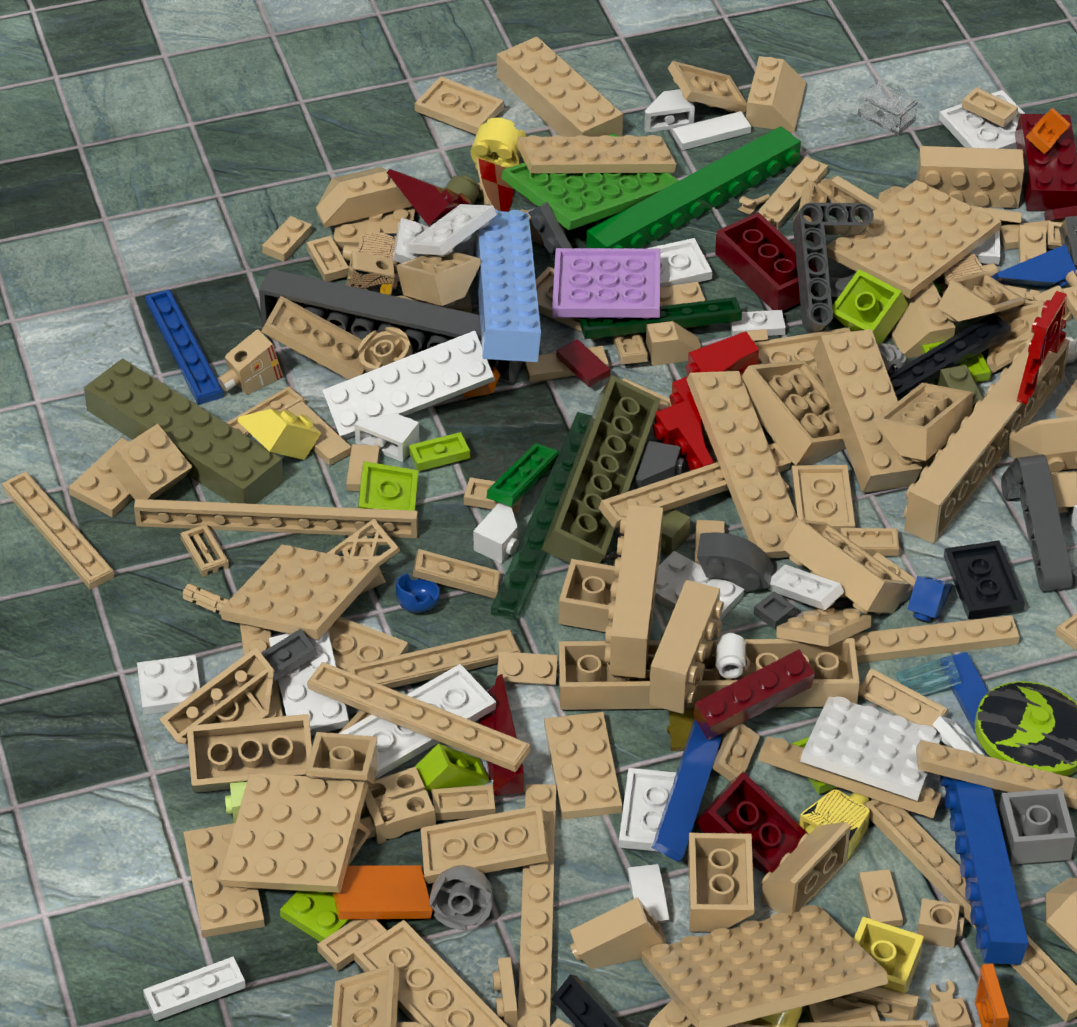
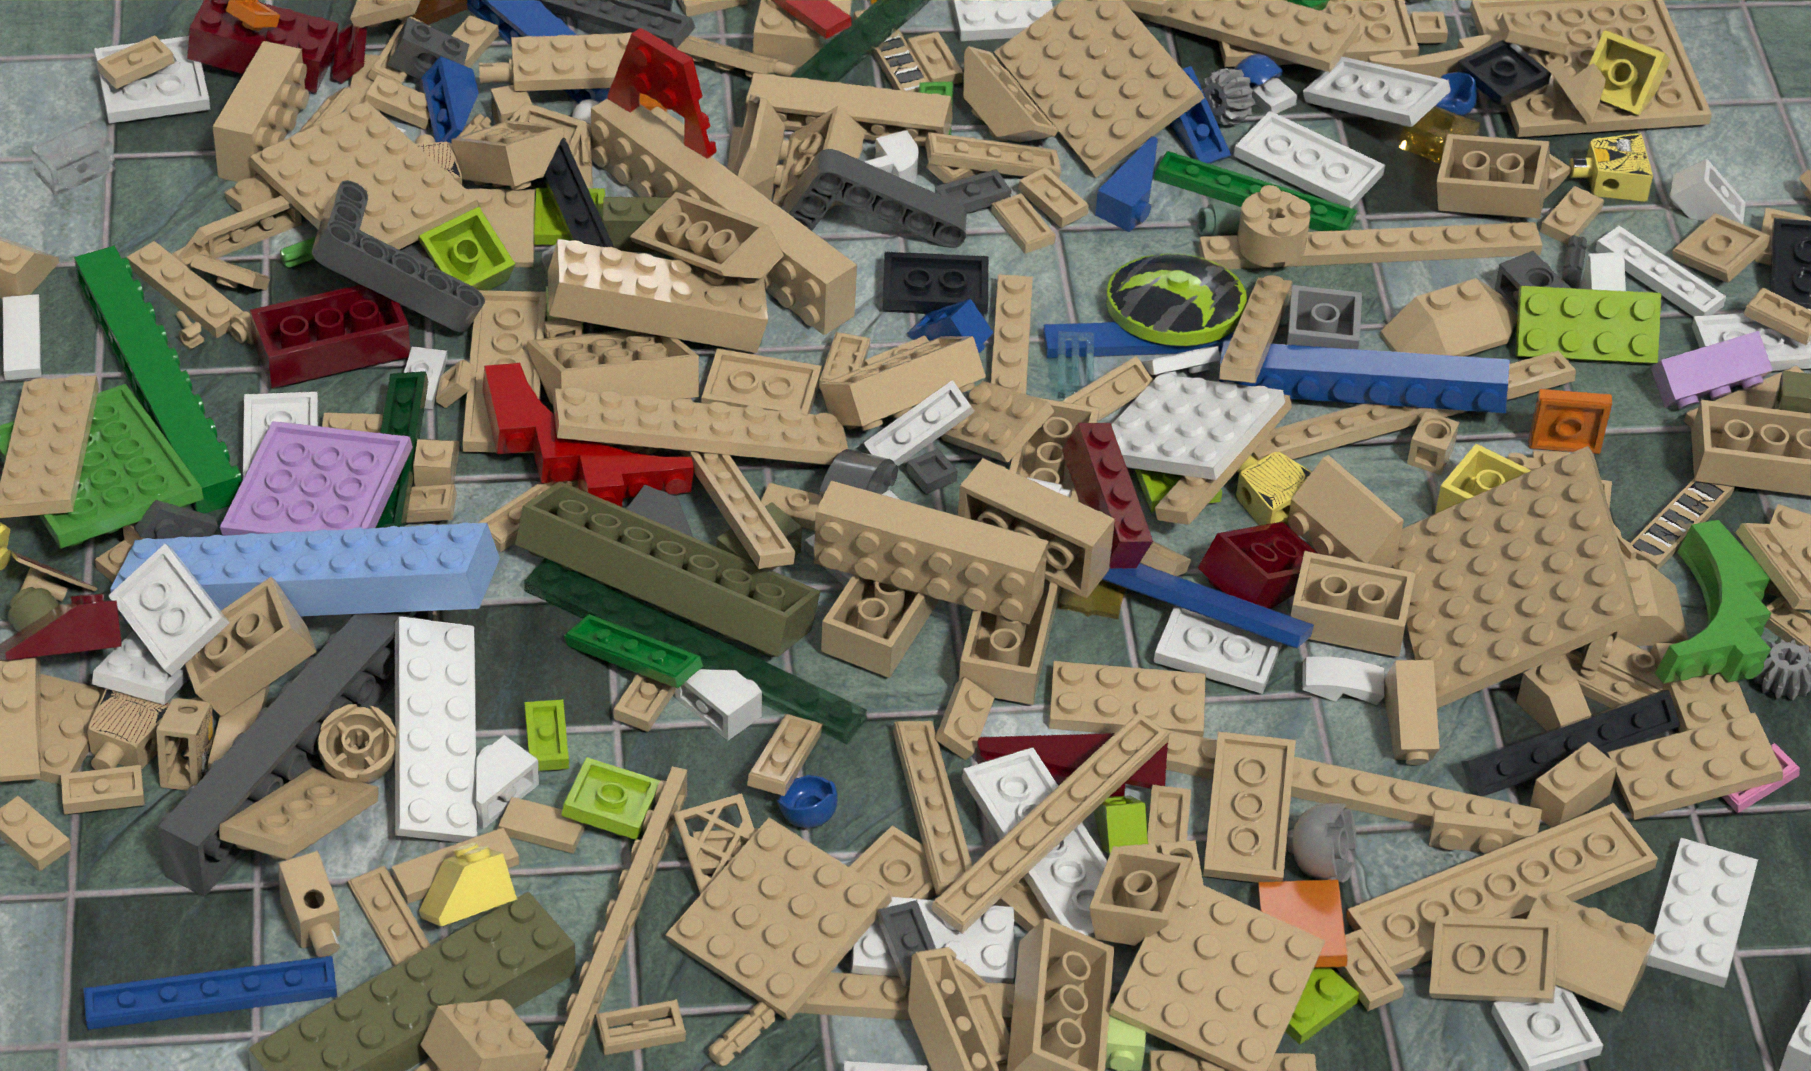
camera: 80 degrees left, 0 degrees up
(880, 897) = (1389, 485): tan plate -> none

